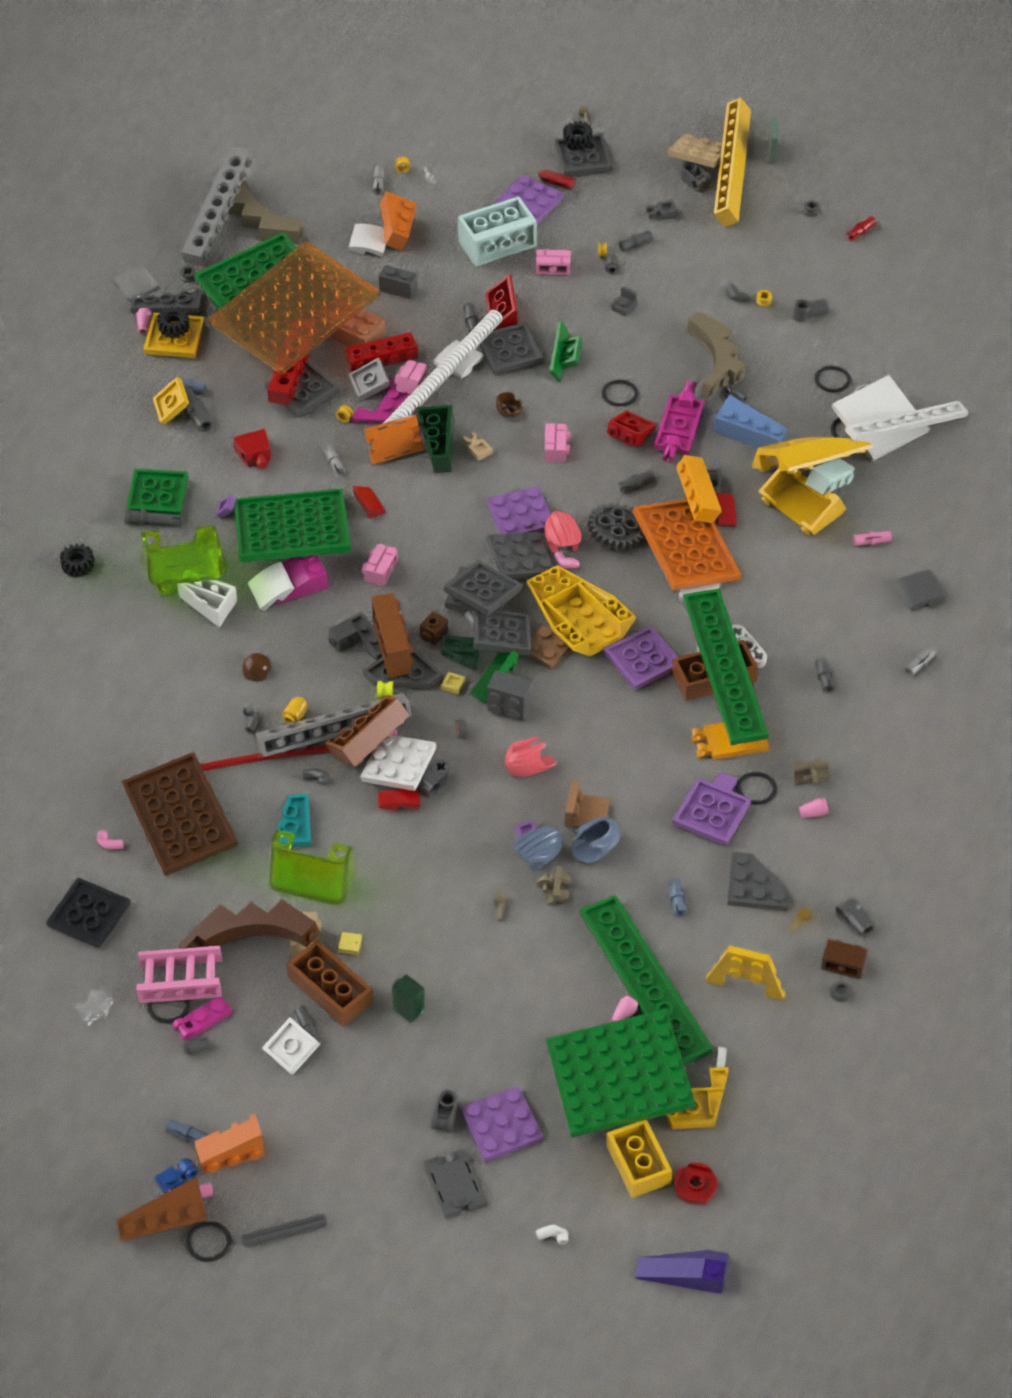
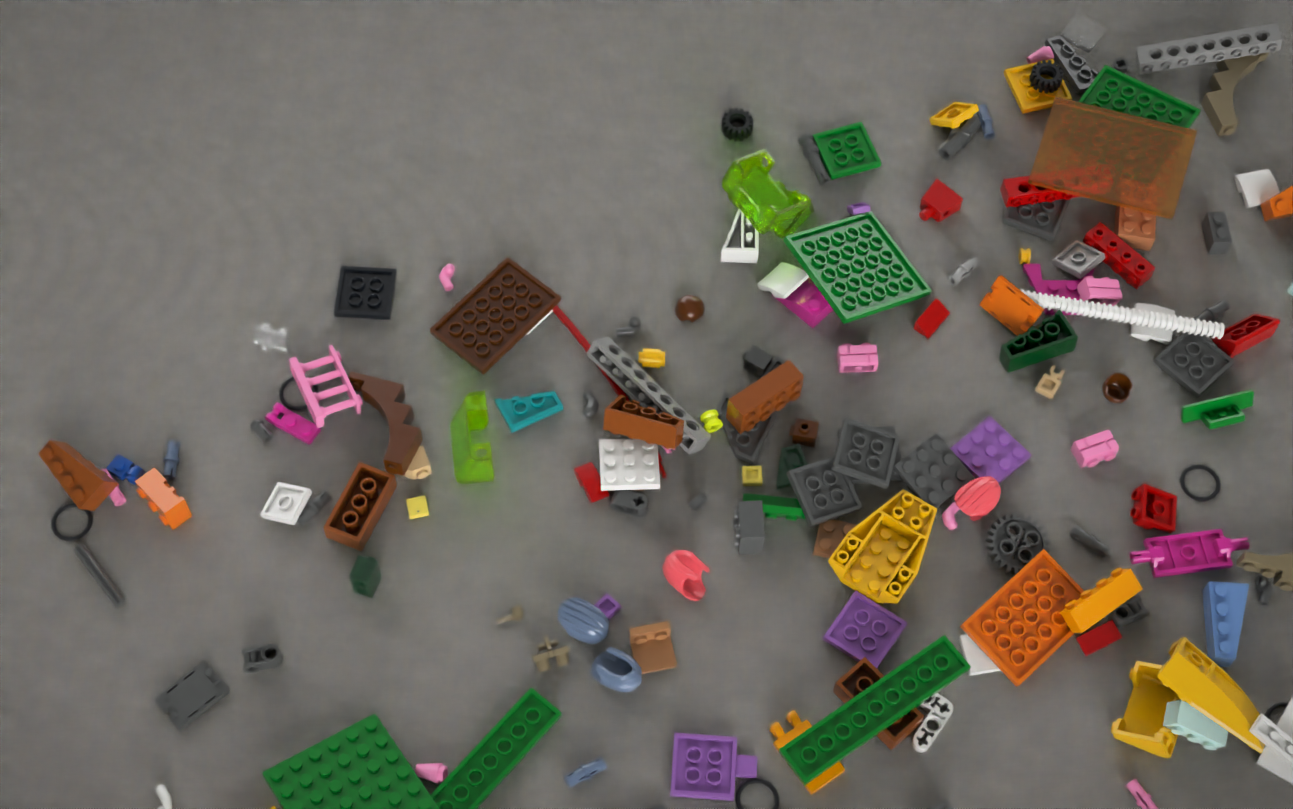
camera: 65 degrees right, 10 degrees up
(501, 1124) = (269, 711): medium lavender plate -> none

